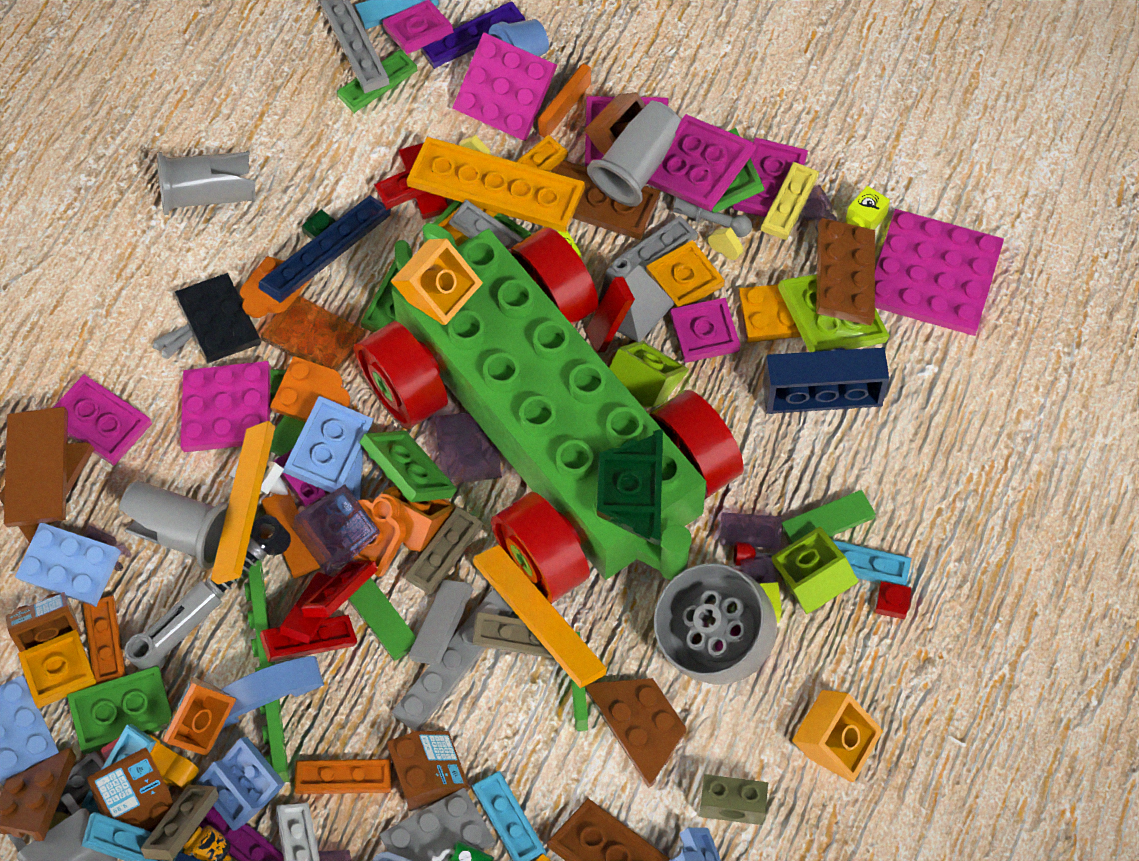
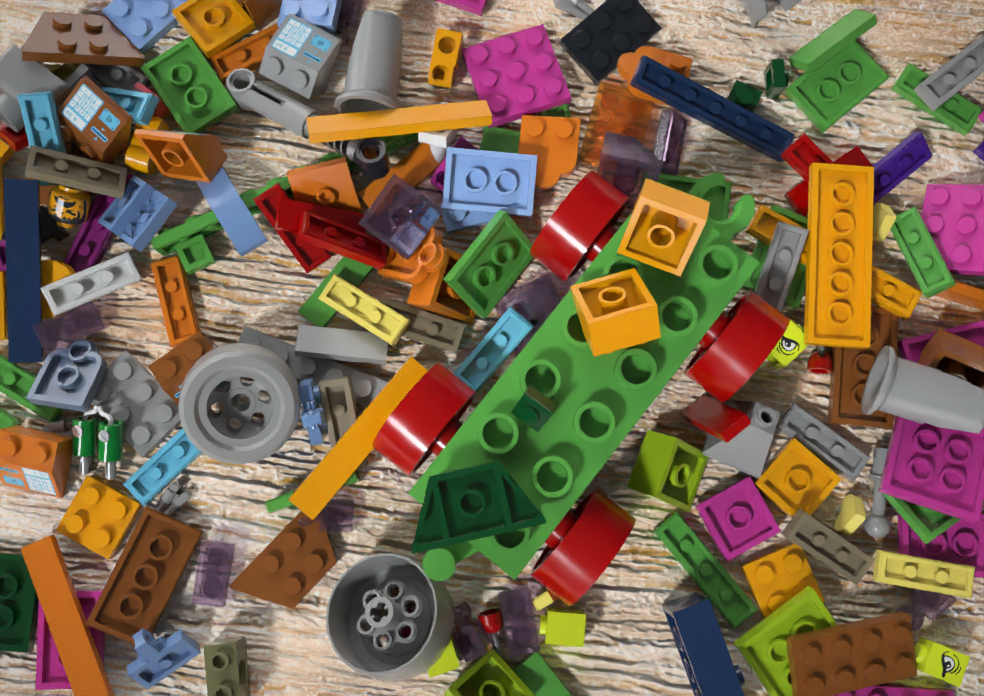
camera: 75 degrees right, 20 degrees up
(135, 586) = (300, 57): none -> light grey slope
(185, 462) = (445, 58): none -> light orange leg
(277, 592) = (325, 185): none -> orange plate
(294, 142) = (833, 40): none -> bright green tile
(301, 742) = (195, 254): none -> bright green plate
(313, 195) = (775, 78): none -> dark green plate
(334, 151) = (836, 86): none -> bright green tile
(334, 291) = (670, 140): none -> clear purple plate
(354, 323) = (627, 164): none -> slope
(413, 591) = (364, 310): none -> light yellow tile
(424, 118) = (899, 164): none -> dark purple tile
(456, 734) = (251, 440): none -> light grey wheel
(485, 479) = (494, 349): none -> medium azure tile
(498, 334) = (616, 312): none -> light orange slope
(500, 658) = (312, 415): none -> medium blue hinge
(514, 126) = (921, 253): none -> bright green tile
(548, 824) = (172, 500): none -> light grey piece
(562, 422) = (534, 408): none -> dark green plate
(584, 230) = (820, 362): none -> red hinge
(615, 664) = (334, 517): none -> plate
(632, 795) = (213, 573): none -> clear purple plate
(734, 498) = (544, 600): none -> light yellow tile
(736, 371) = (705, 570): none -> bright green tile
(748, 265) = (828, 546): none -> dark tan plate
(764, 492) = (563, 626): none -> neon yellow brick

